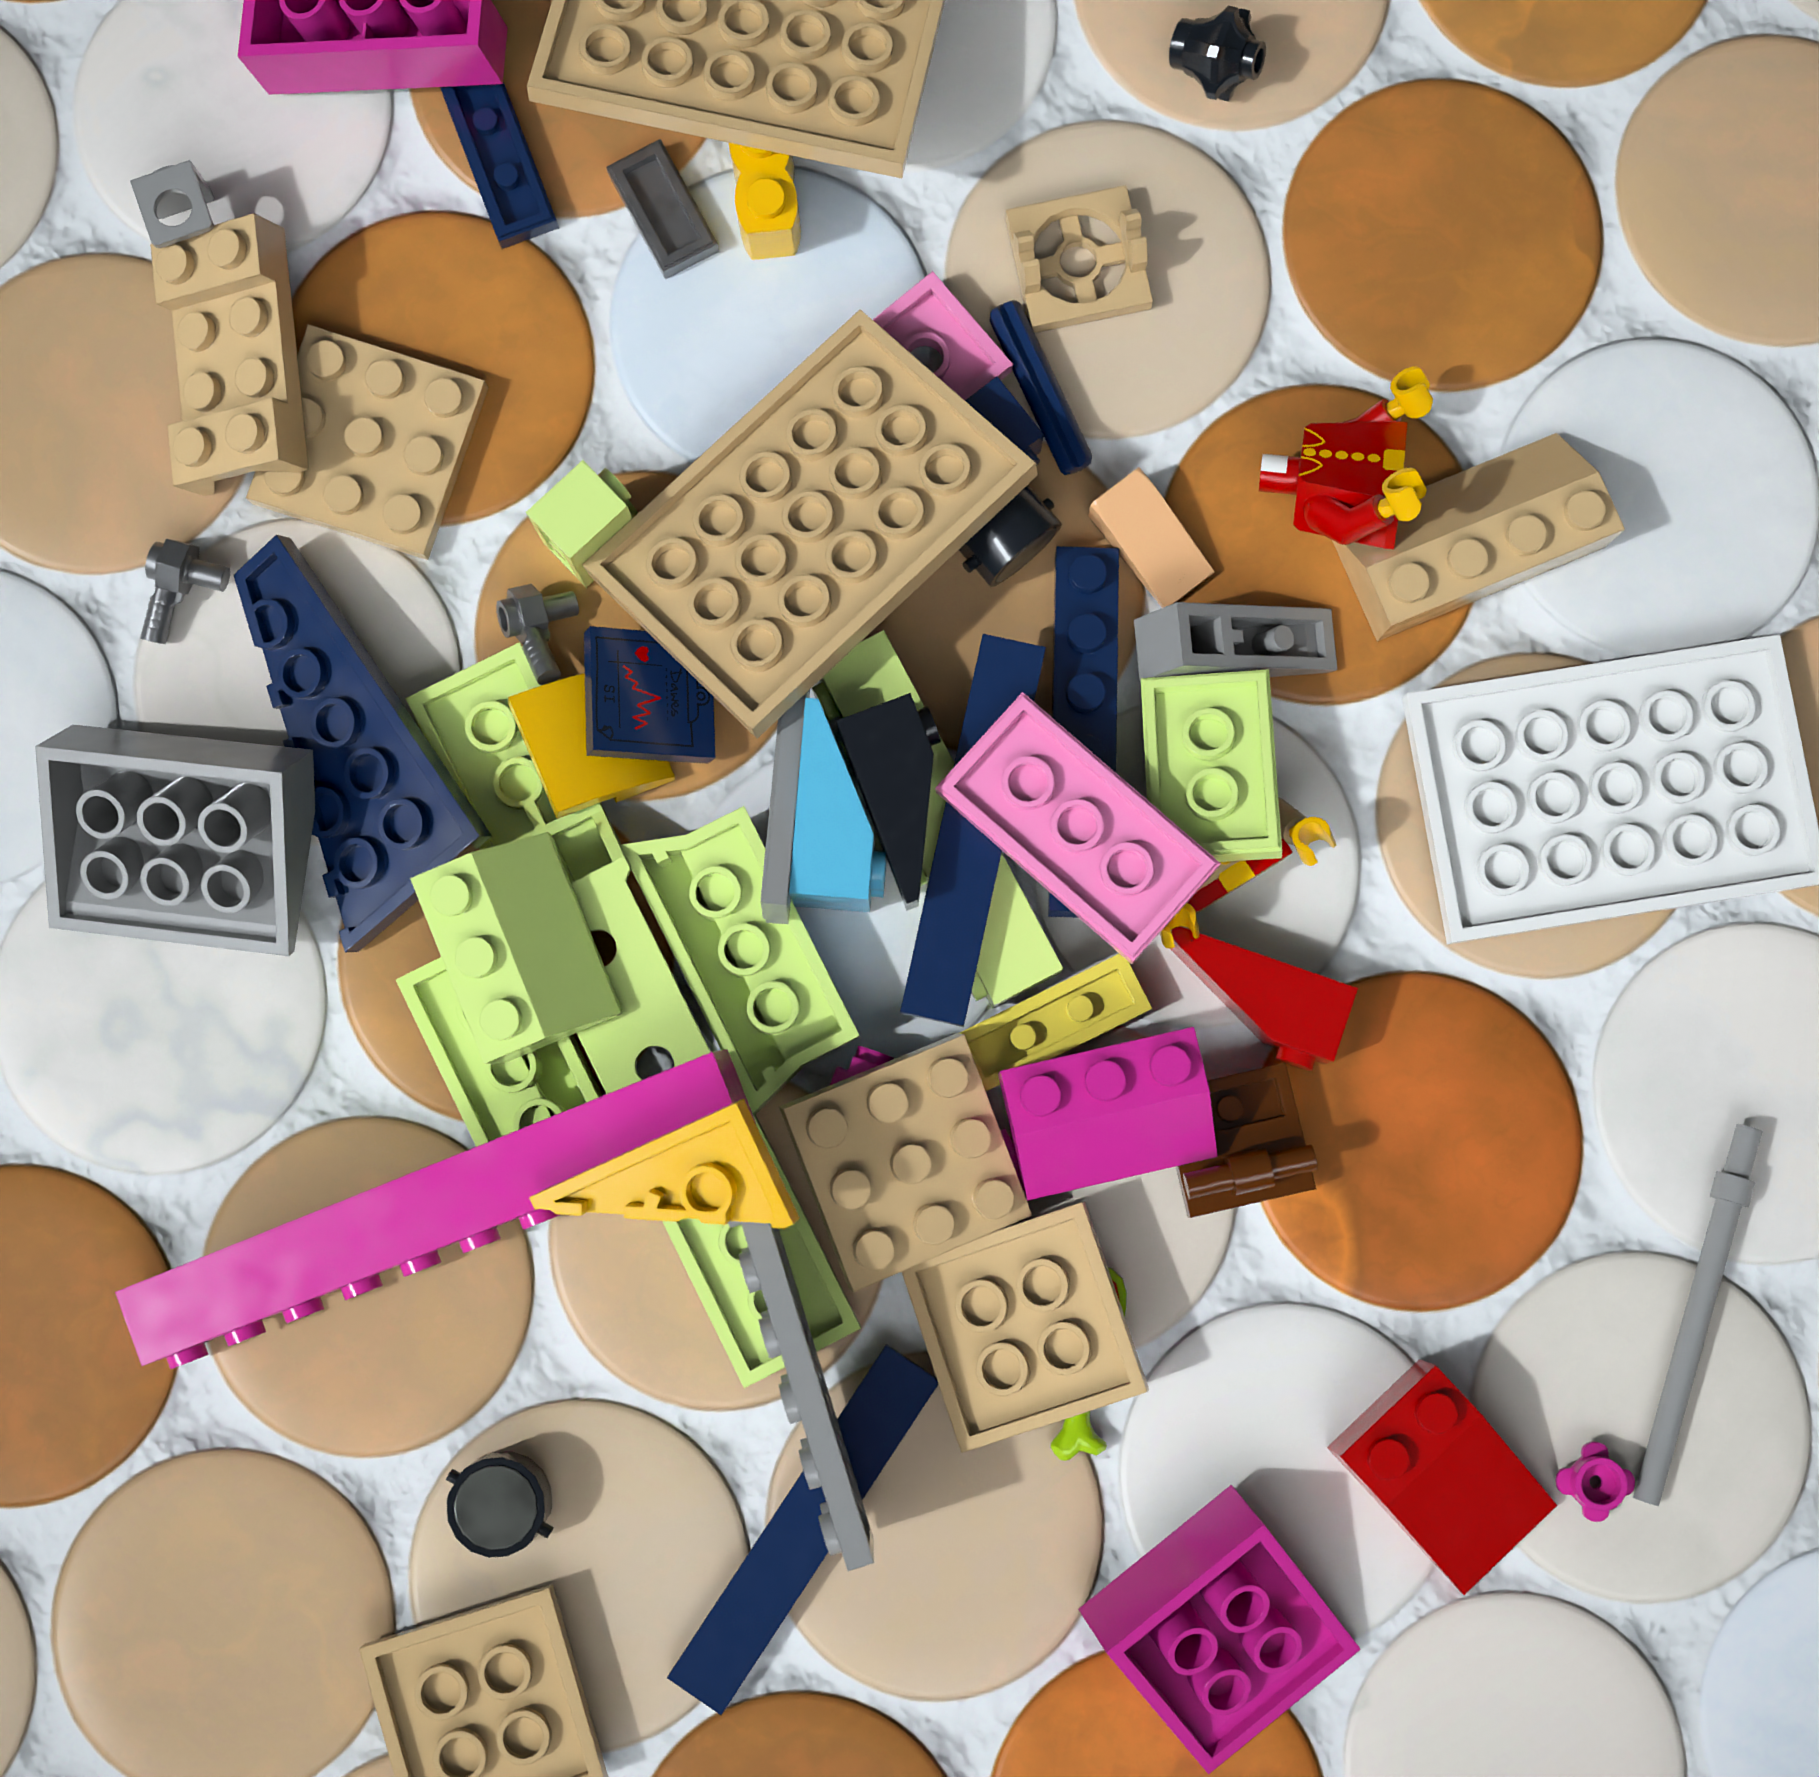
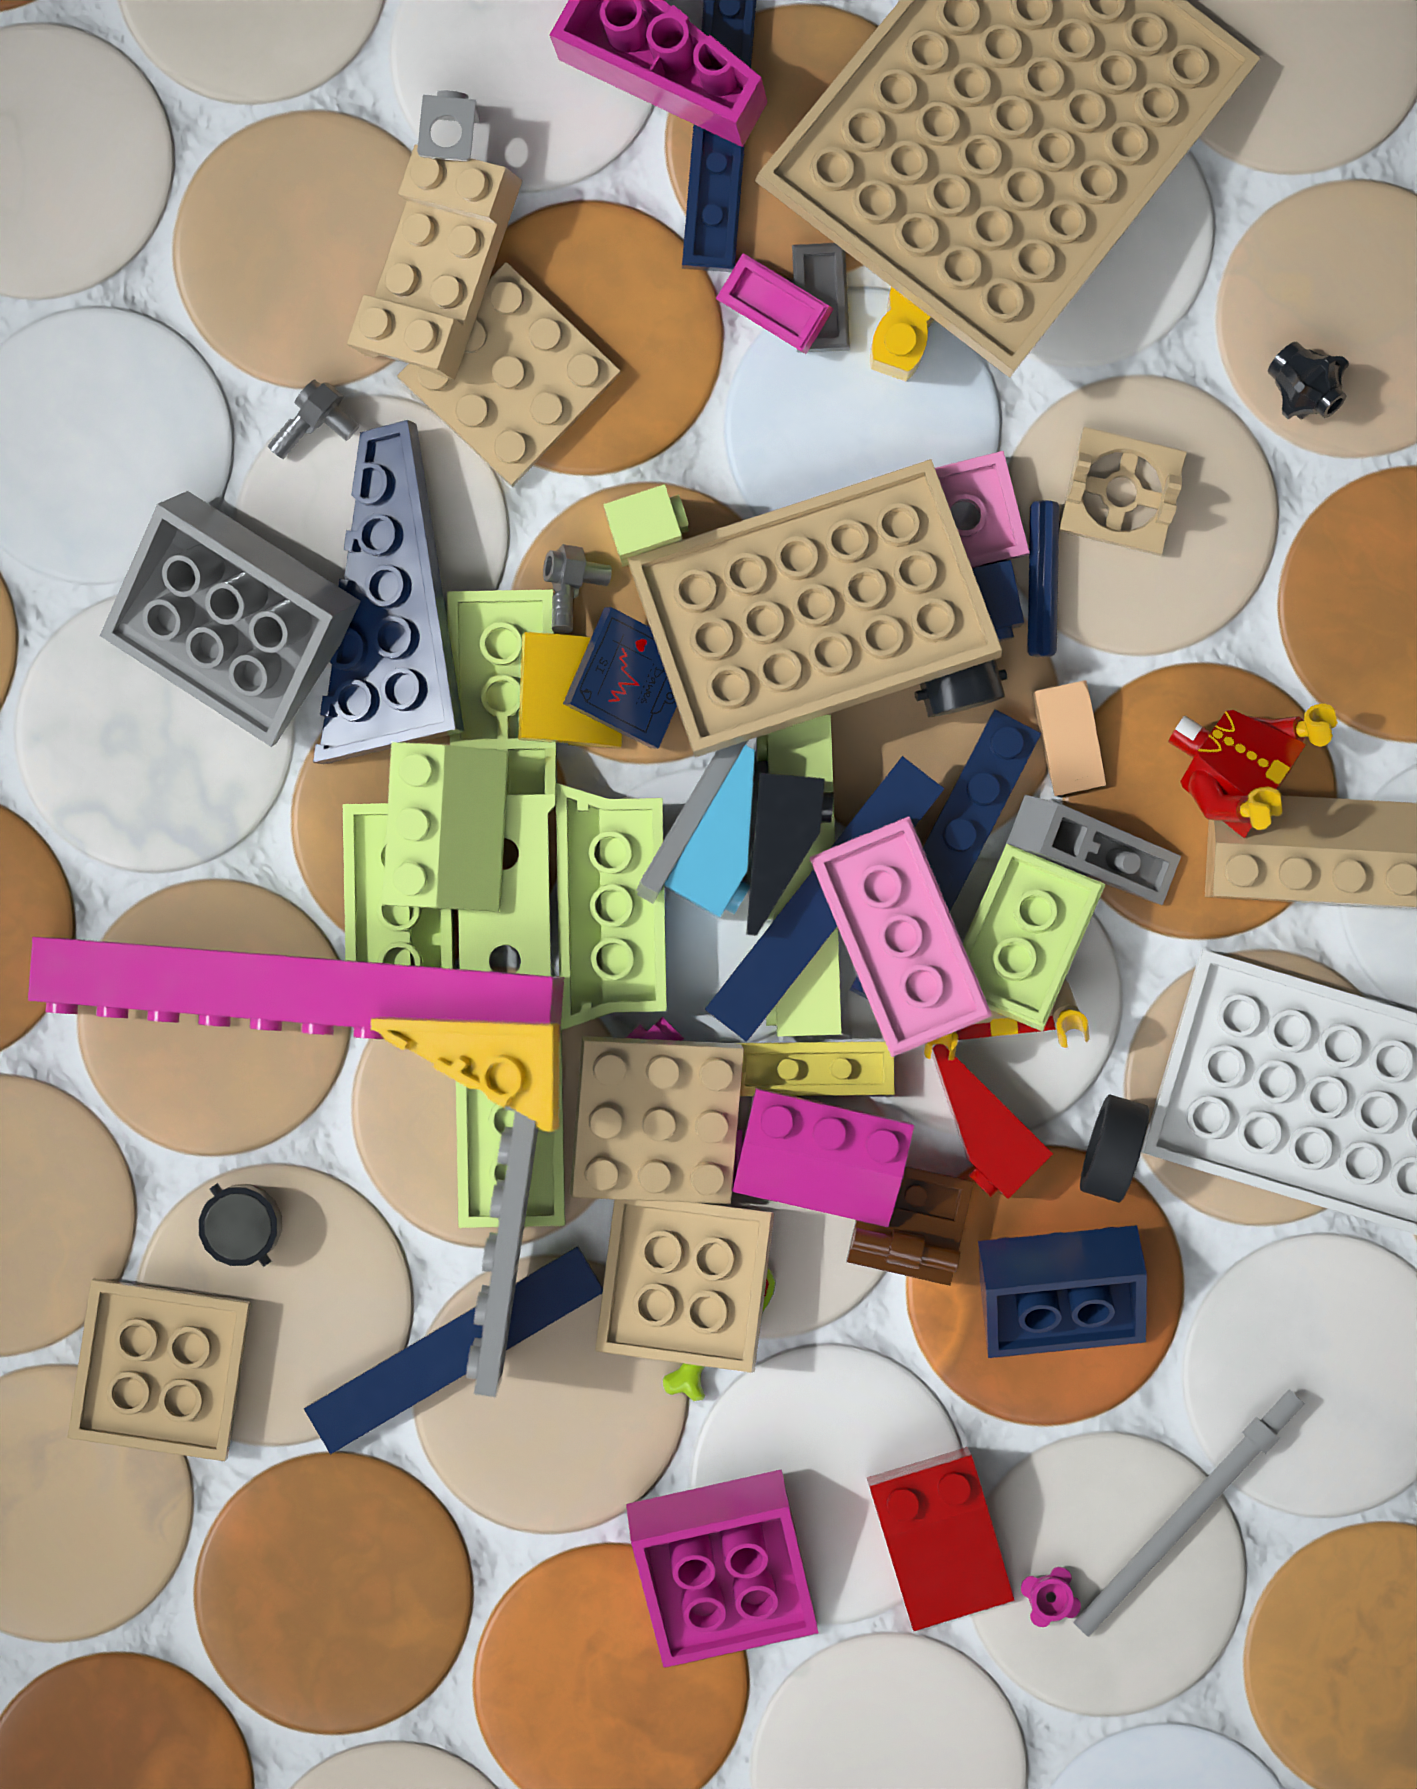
camera: 30 degrees right, 5 degrees up
(616, 234) = (774, 303): none -> dark pink tile
(1421, 950) = (1114, 1148): none -> black tyre
(1441, 1134) = (1063, 1291): none -> dark blue slope

